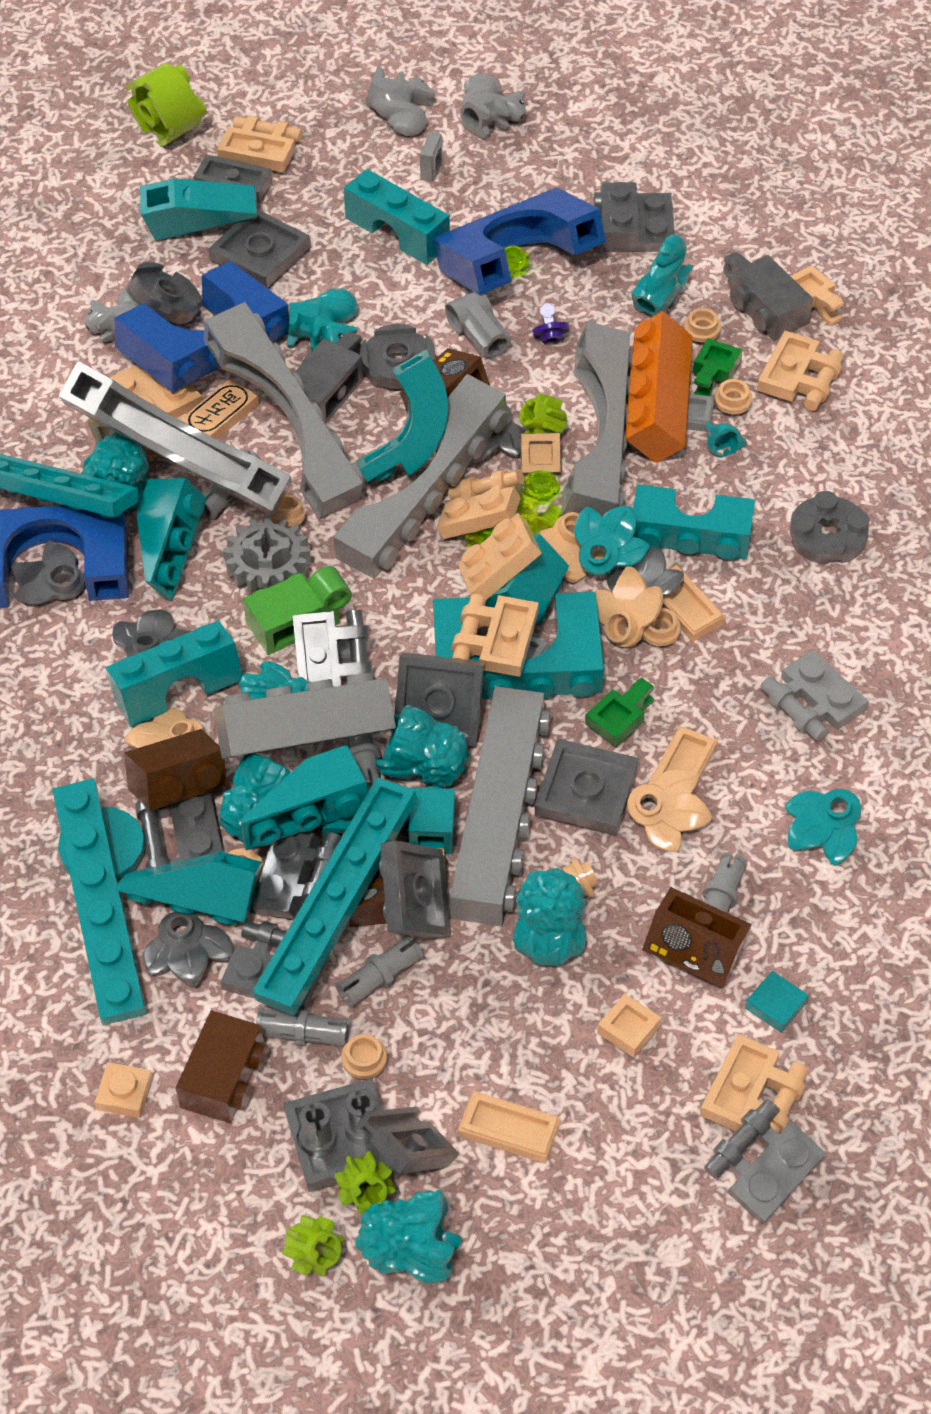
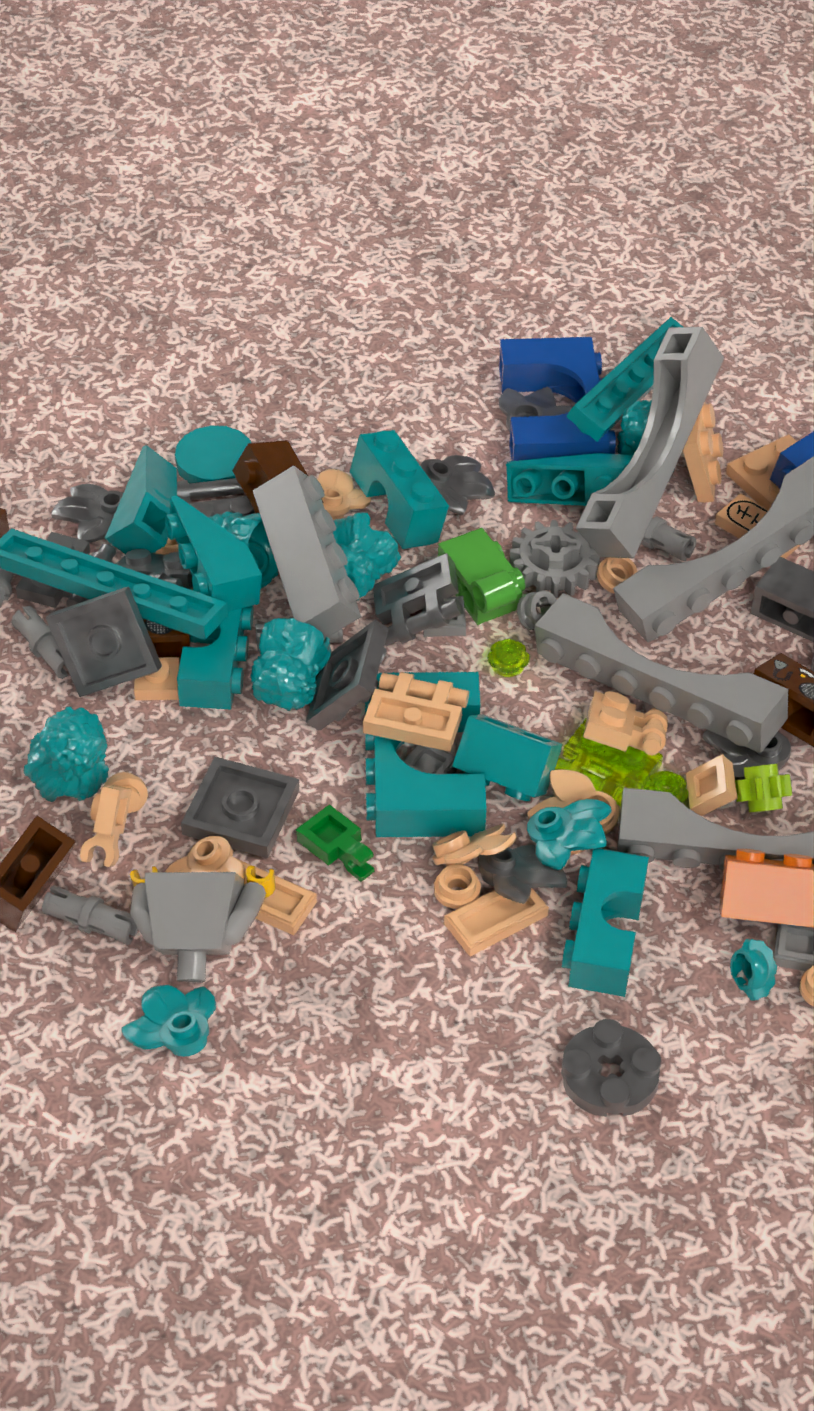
camera: 90 degrees right, 5 degrees down
(98, 902) = (173, 442): teal plate -> none
(341, 564) = (527, 607): none -> light grey bush
(392, 601) = (508, 657): none -> clear neon green plate
(423, 425) = (744, 644): teal arch -> none
(497, 807) = (226, 727): light grey brick -> none
(499, 557) = (532, 722): light nougat plate -> none
(625, 873) = (110, 814): none -> light nougat plate
(727, 801) = (196, 913): none -> light grey torso
(822, 688) = (359, 1041): light grey plate -> none

